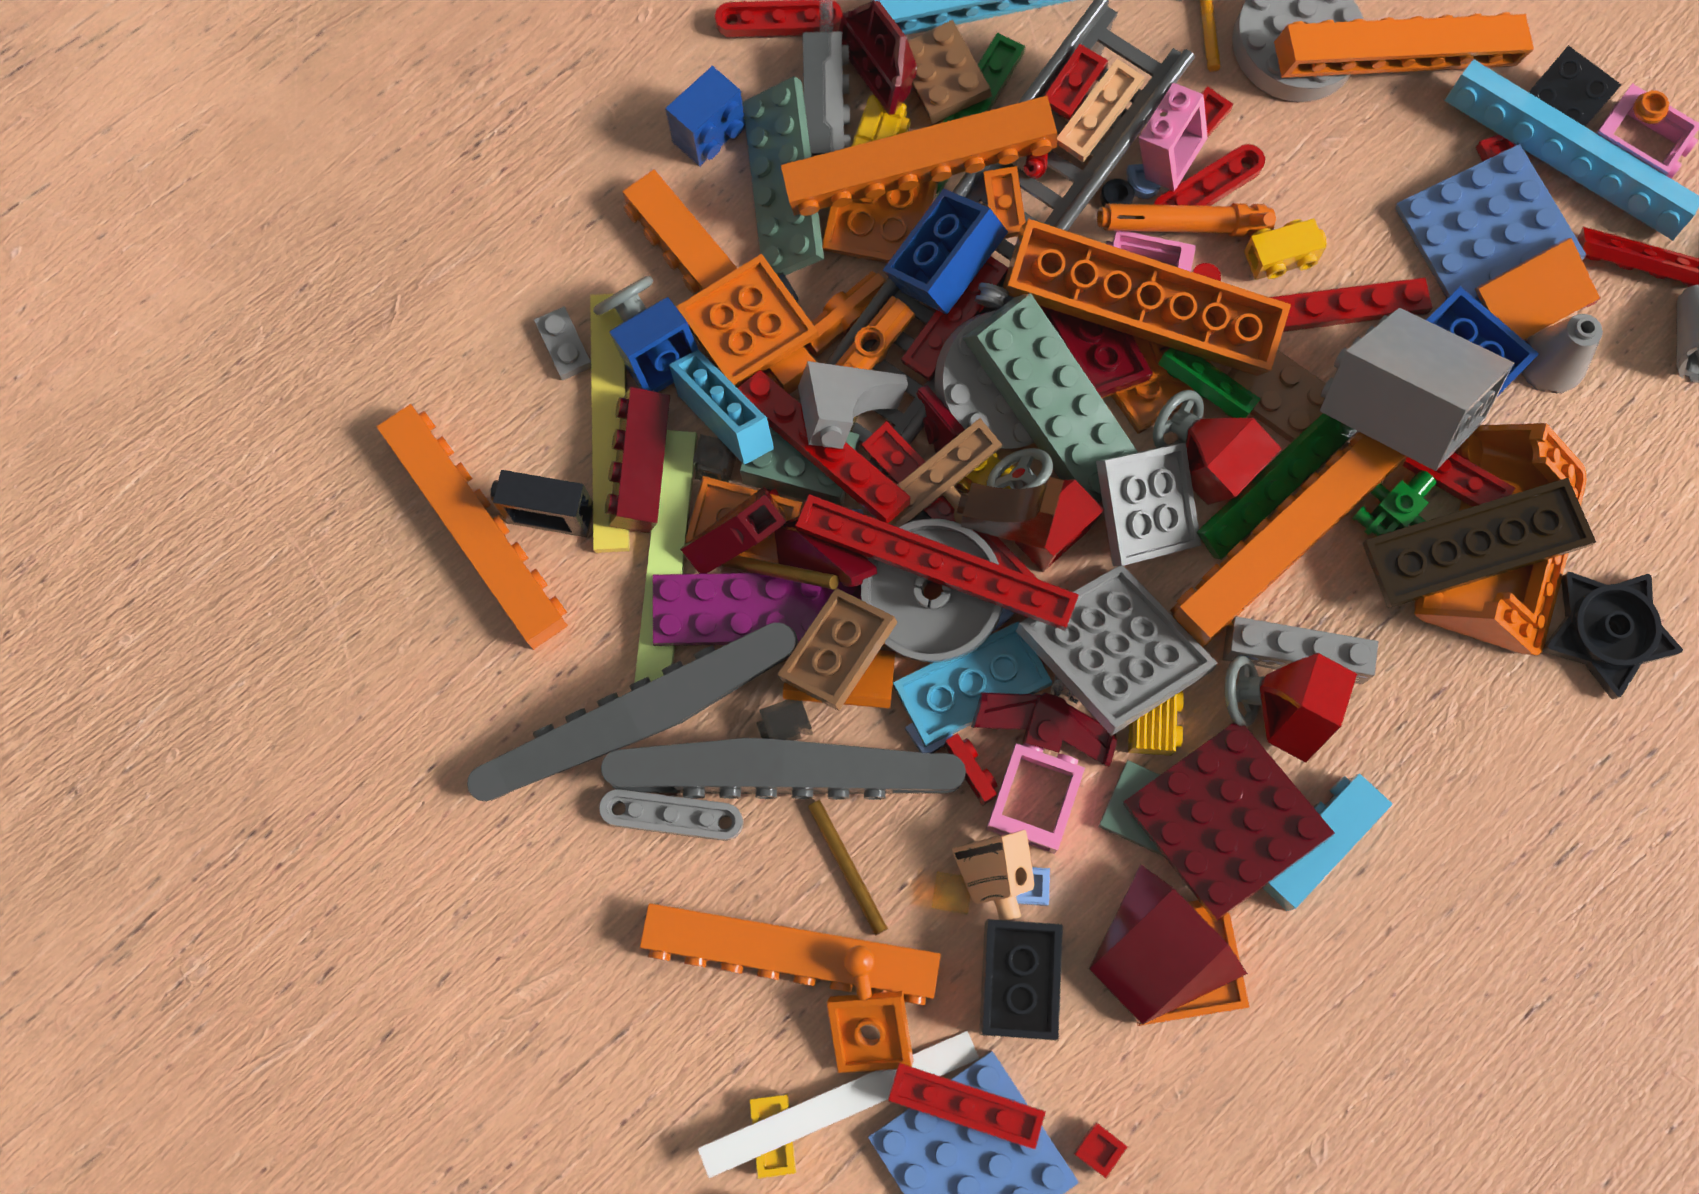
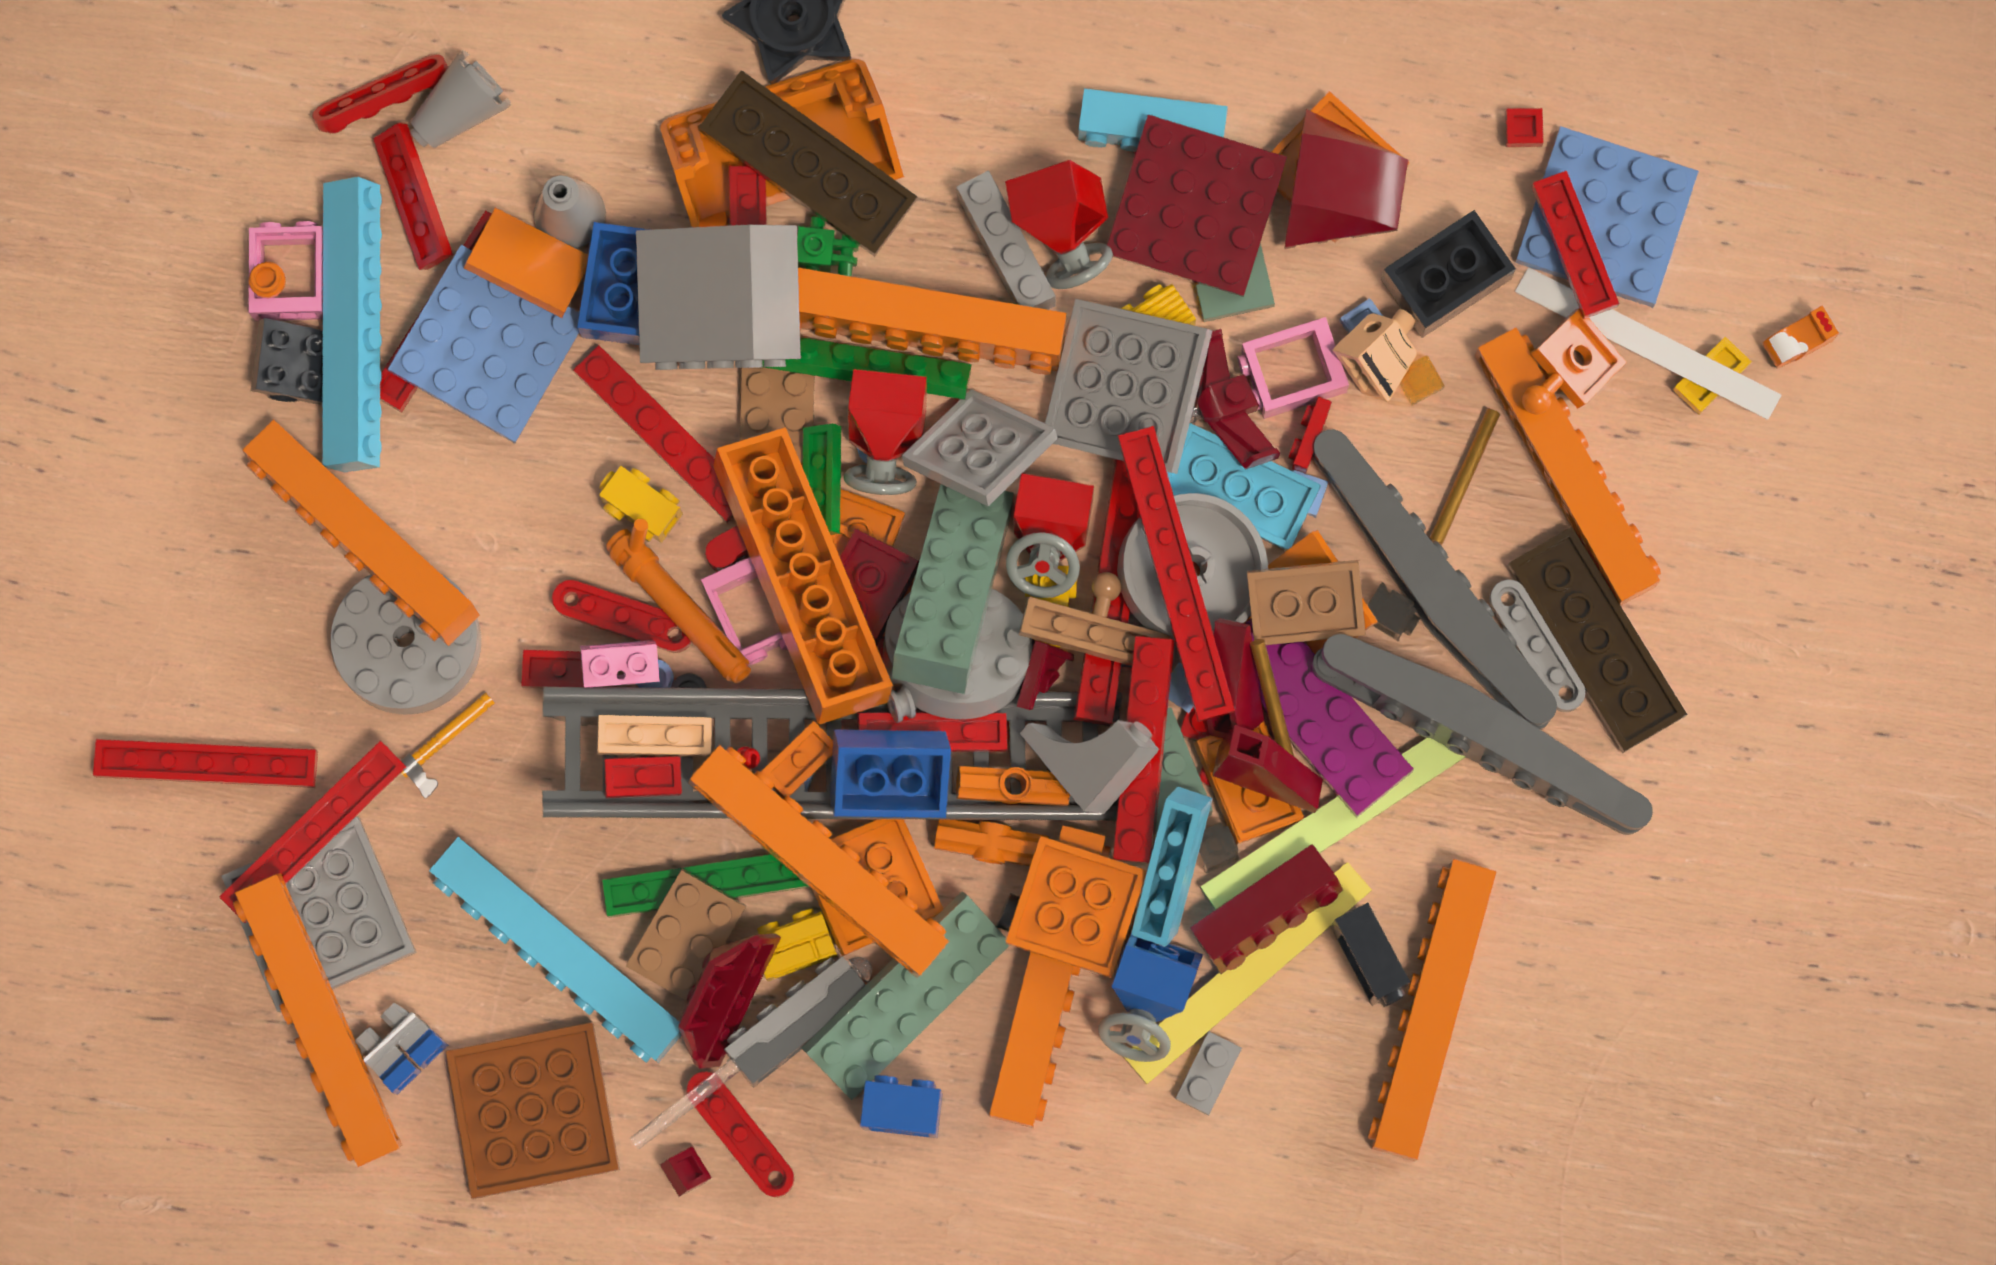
camera: 125 degrees left, 5 degrees up
(638, 865) = (1598, 640): none -> dark brown plate
(1012, 513) = (1093, 535): reddish brown arch -> none

